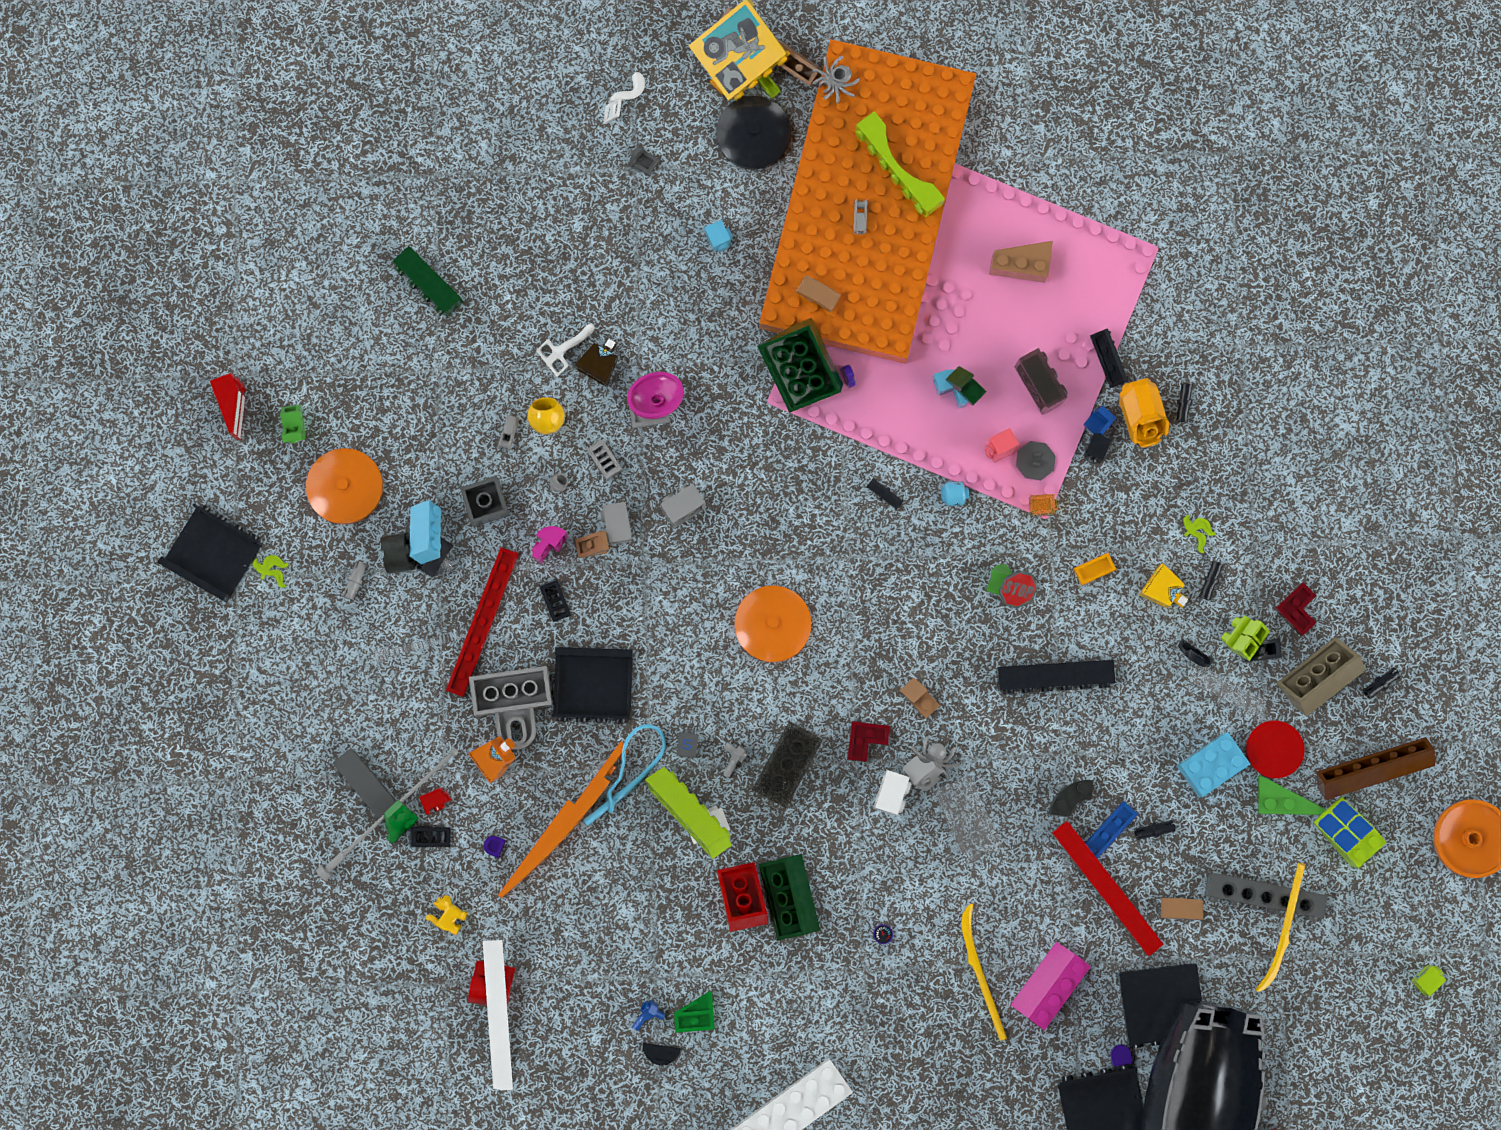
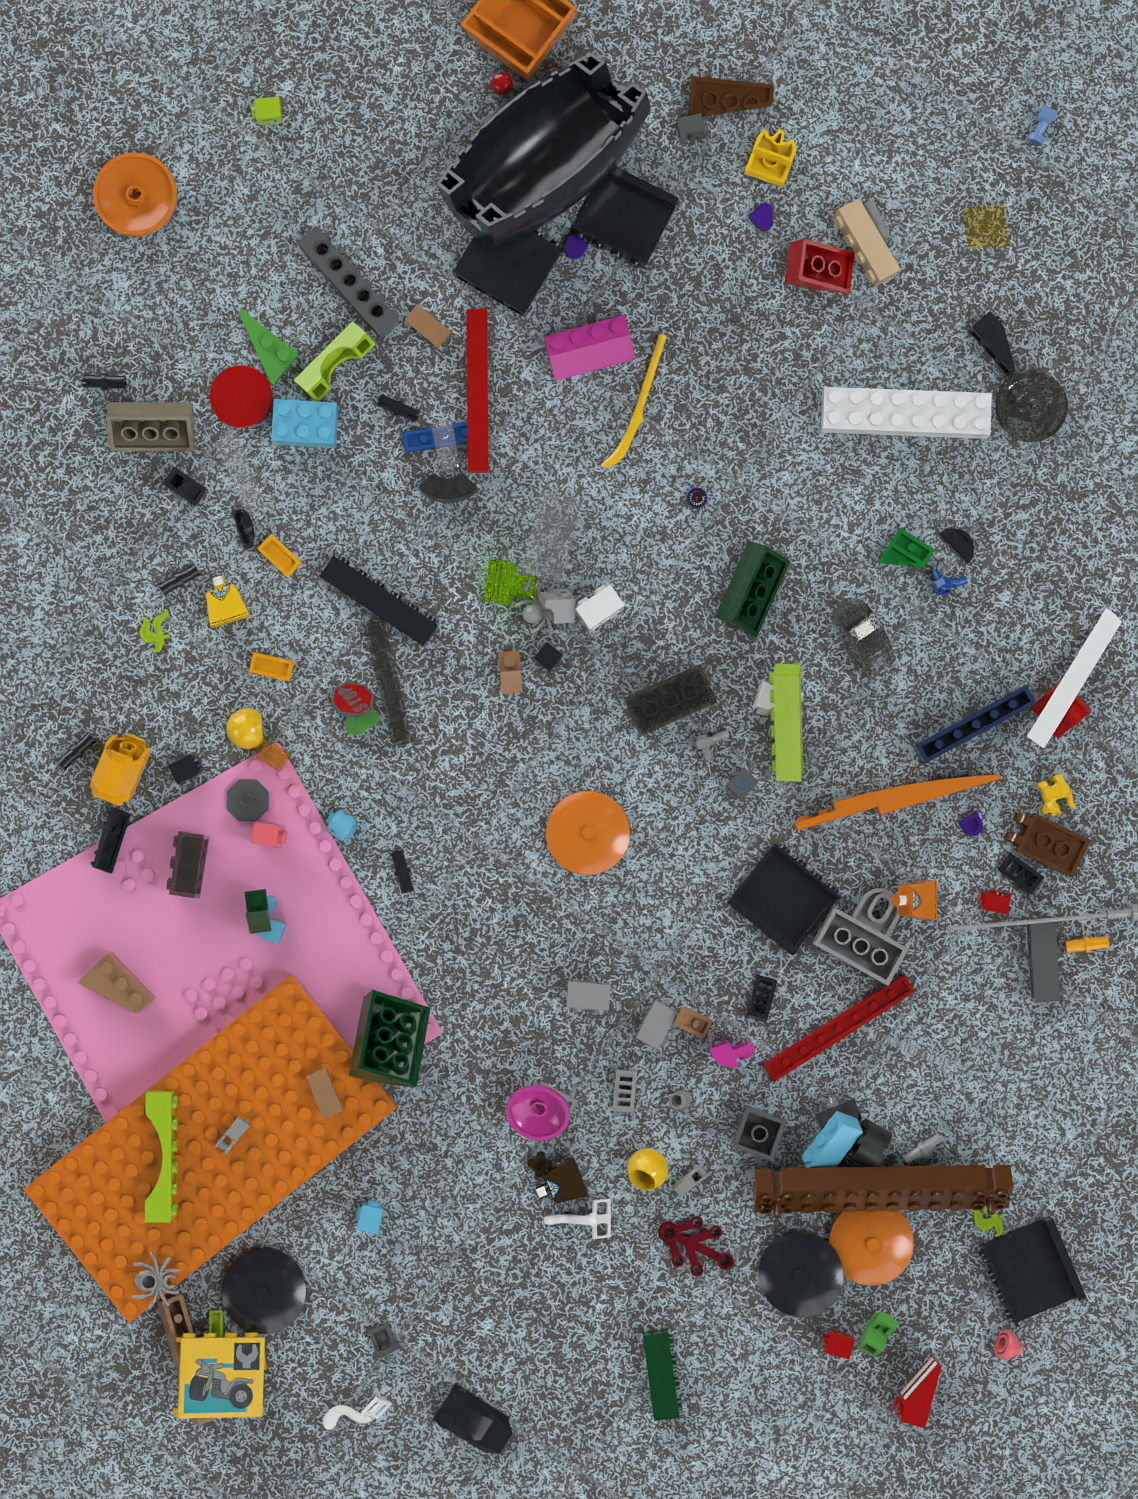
camera: 145 degrees left, 5 degrees up
(190, 486) = (1007, 1345): none -> coral brick
(315, 396) = (837, 1343): none -> red brick
(342, 821) = (1086, 944): none -> light orange pin
(364, 528) = (882, 1189): none -> reddish brown brick
(379, 425) = (800, 1274): none -> black dish
(398, 820) = (1038, 907): green wing -> none
(425, 875) = (1048, 843): none -> reddish brown tile
(472, 389) = (692, 1244): none -> dark red plant
(537, 154) = (474, 1420): none -> black slope
(547, 921) = (974, 724): none -> dark blue brick
(611, 801) = (829, 785): medium azure piece -> none
(626, 358) = (540, 1157): none -> dark brown plate
(684, 924) = (861, 633): none -> clear smoke piece
(742, 897) = (792, 619): red slope -> none
(848, 376) = (353, 1000): dark purple tile -> none
(863, 734) = (586, 677): dark red plate -> none
(901, 729) = (548, 657): none -> black brick
(975, 759) = (504, 583): none -> clear neon green piece
(1001, 621) = (388, 683): none -> clear smoke tile
(1078, 509) = (245, 728): none -> yellow helmet
(1097, 827) = (446, 446): none -> clear hinge
(1099, 420) = (164, 791): blue panel -> none
(1153, 654) = (279, 555): none -> light orange tile
(1228, 848) = (349, 344): none -> lime arch
(1245, 636) = (189, 510): lime hips -> none
(1284, 938) = (361, 236): yellow piece -> none
(1292, 609) = (128, 502): dark red plate -> none
(1349, 833) = (235, 279): slope -> none
(1375, 768) = (169, 314): reddish brown brick -> none

